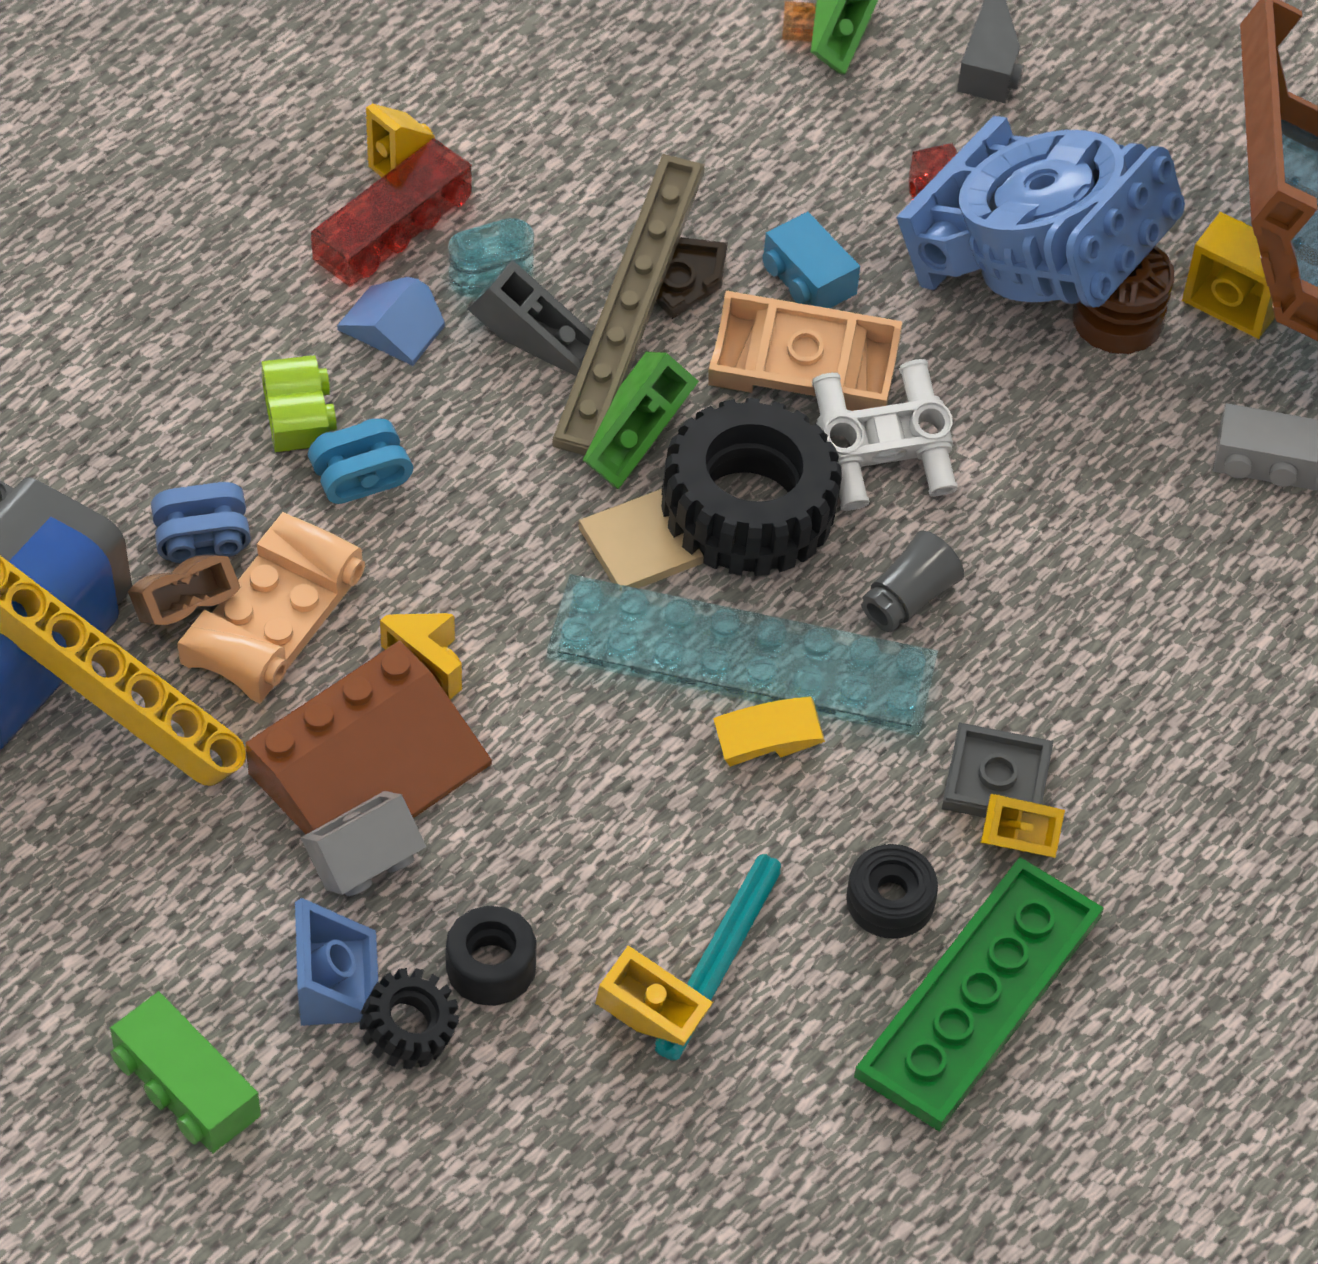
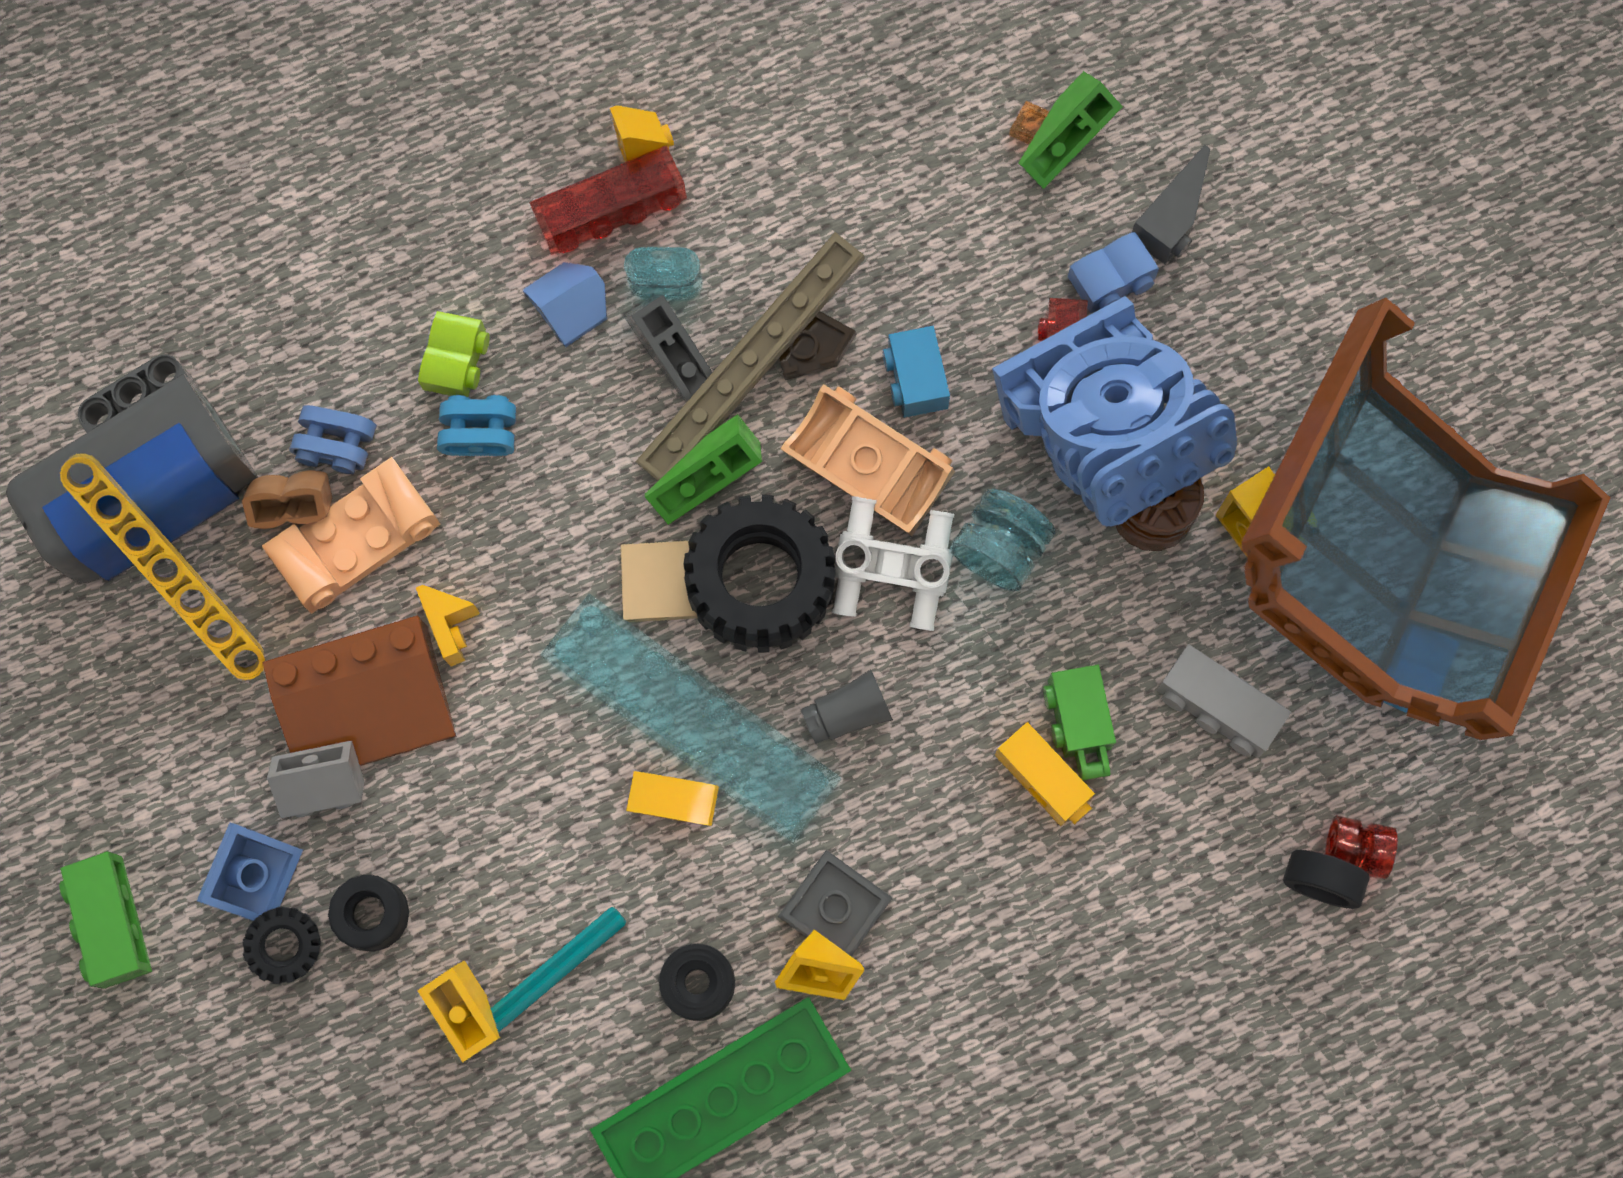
camera: 30 degrees right, 20 degrees up
(958, 113) = (1113, 272): none -> medium blue brick
(988, 373) = (1003, 539): none -> clear light blue wheel
(1147, 574) = (1045, 775): none -> yellow brick
(1155, 511) = (1081, 718): none -> bright green brick

